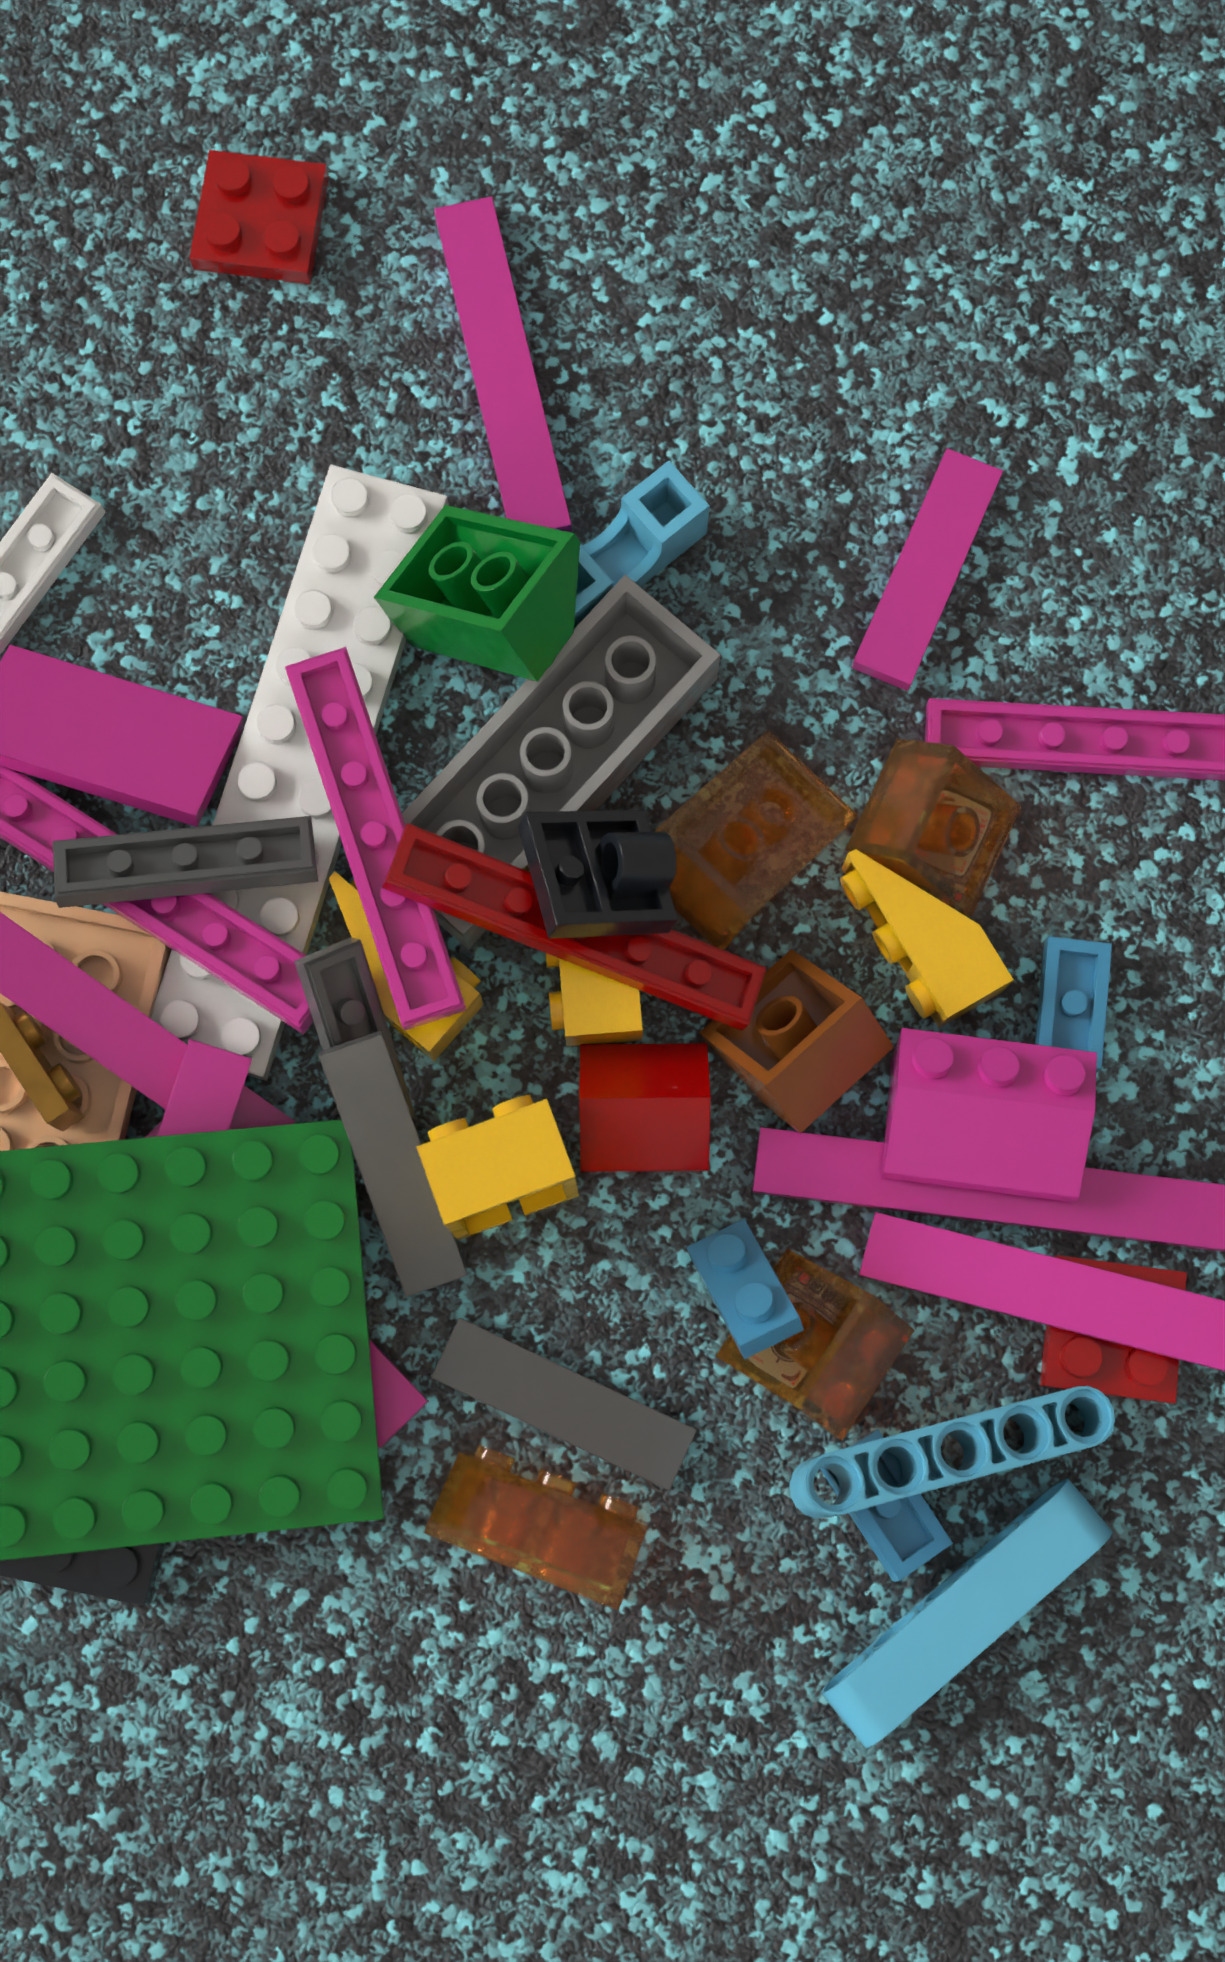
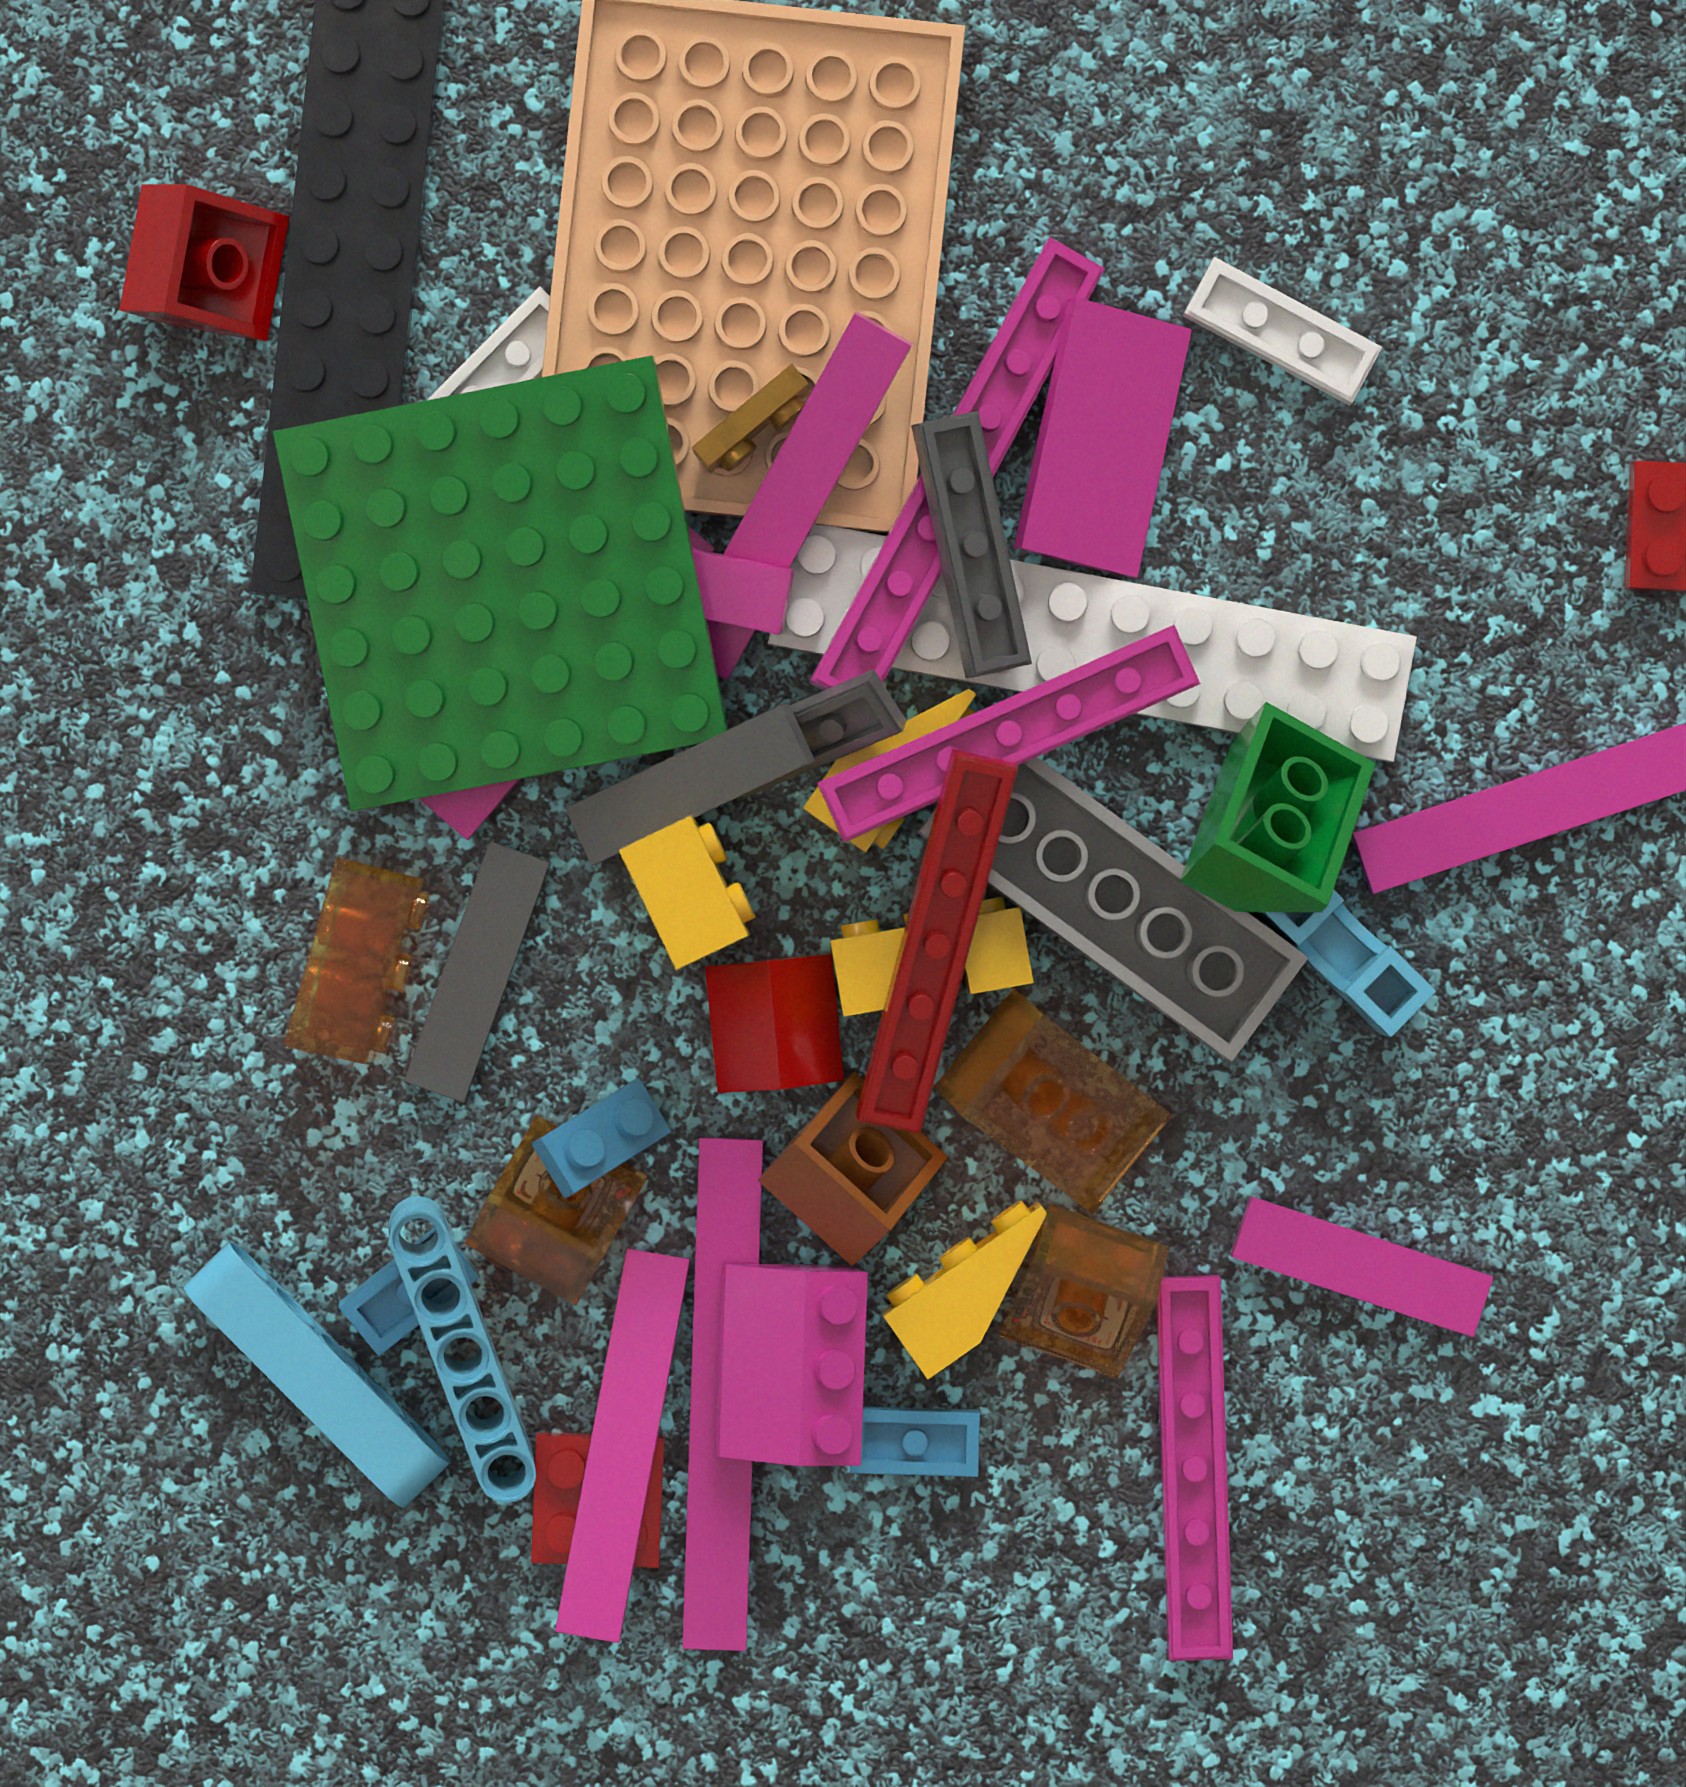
camera: 85 degrees right, 10 degrees up
(600, 872) = (989, 962): black plate -> none

